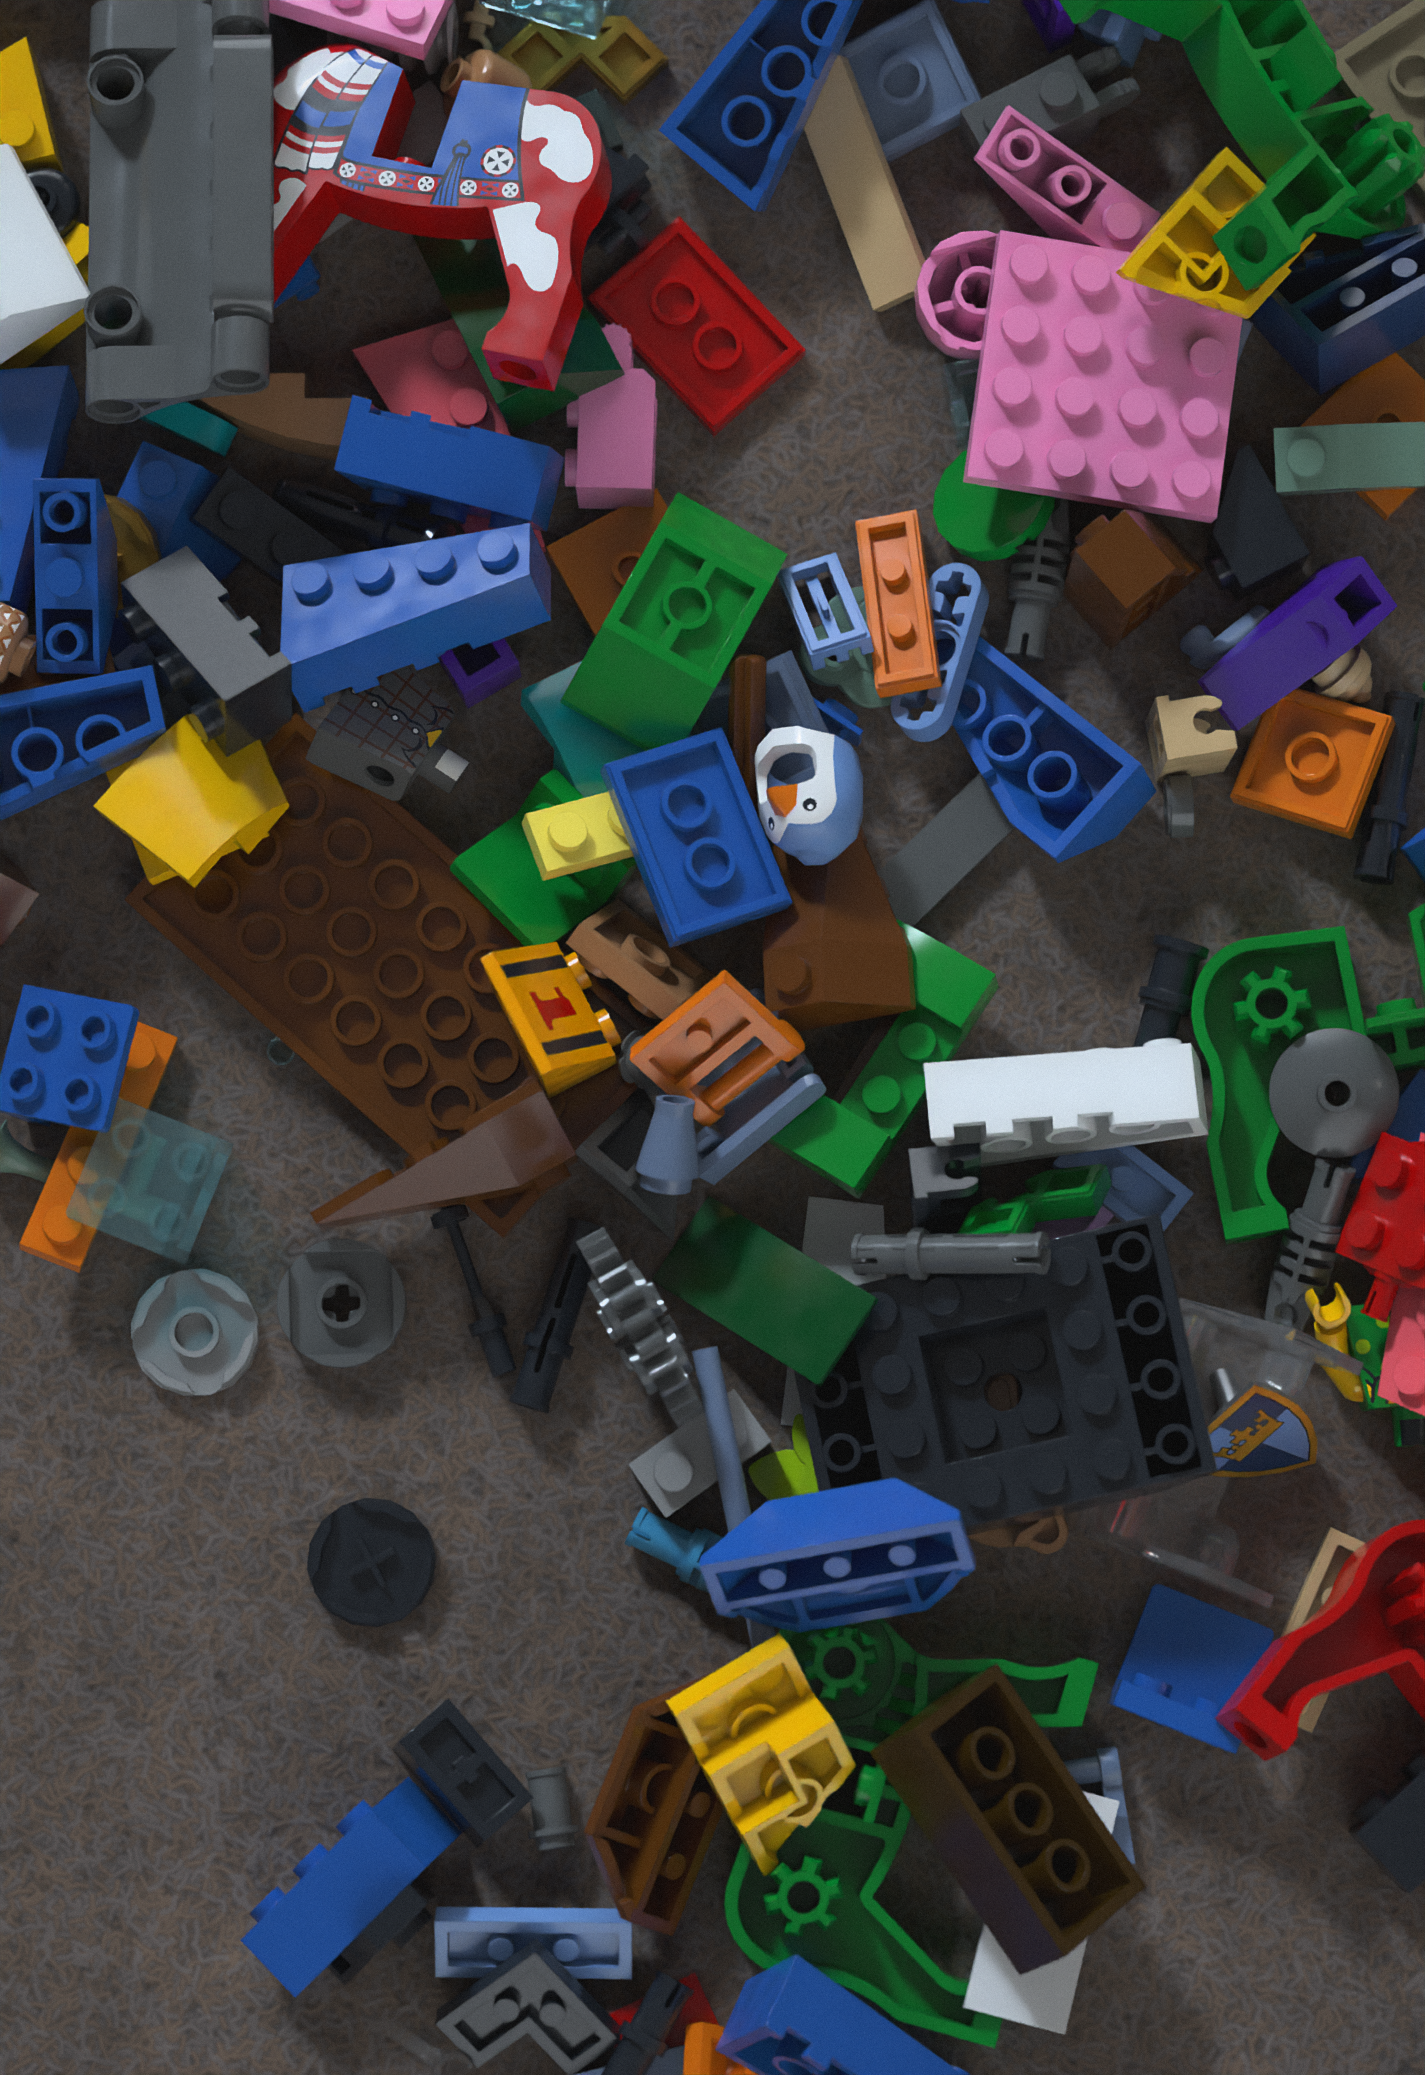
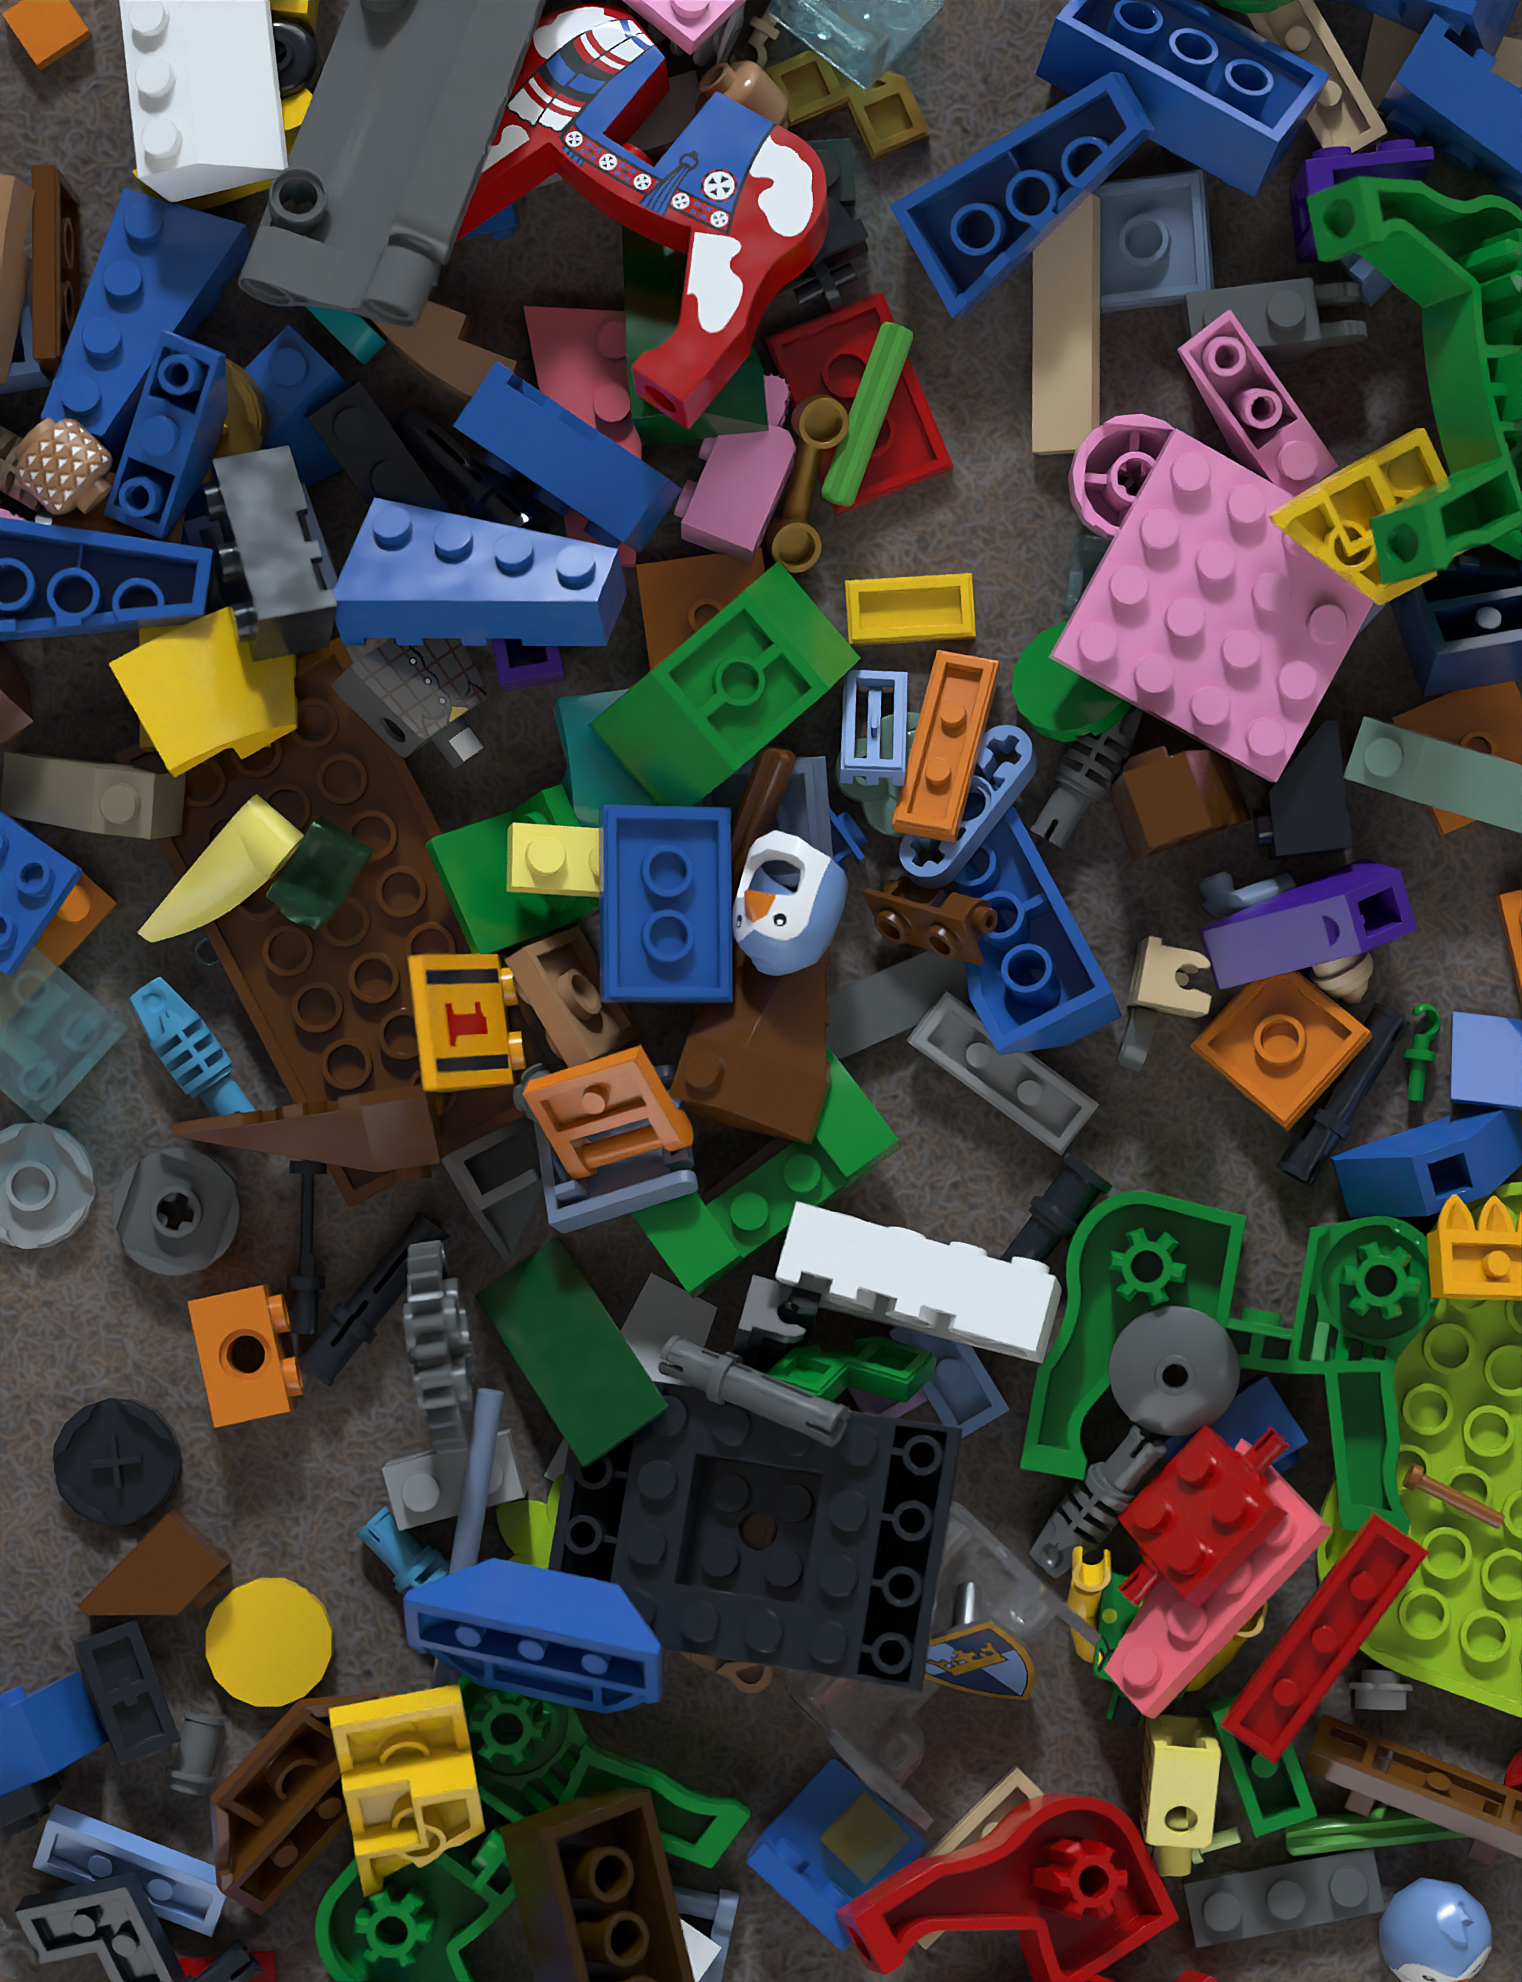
camera: 25 degrees right, 5 degrees up
(119, 941) = (93, 795): none -> dark tan slope
(273, 964) = (227, 872): none -> light yellow piece
(291, 1144) = (188, 1048): none -> dark azure hinge
(361, 933) = (320, 875): none -> clear green bracket
(422, 1392) = (232, 1391): none -> orange brick
(454, 1649) = (161, 1574): none -> reddish brown slope
(580, 1678) = (269, 1642): none -> yellow tile
(666, 353) = (821, 425): none -> pearl gold bar
(669, 1149) = (530, 1190): sand blue cone -> none
(708, 329) = (867, 414): none -> bright green axle
(815, 494) = (910, 609): none -> yellow tile
(936, 771) = (912, 917): none -> reddish brown hinge
(1073, 889) = (1011, 1082): none -> light grey tile
(1214, 1645) = (865, 1837): none -> clear yellow tile

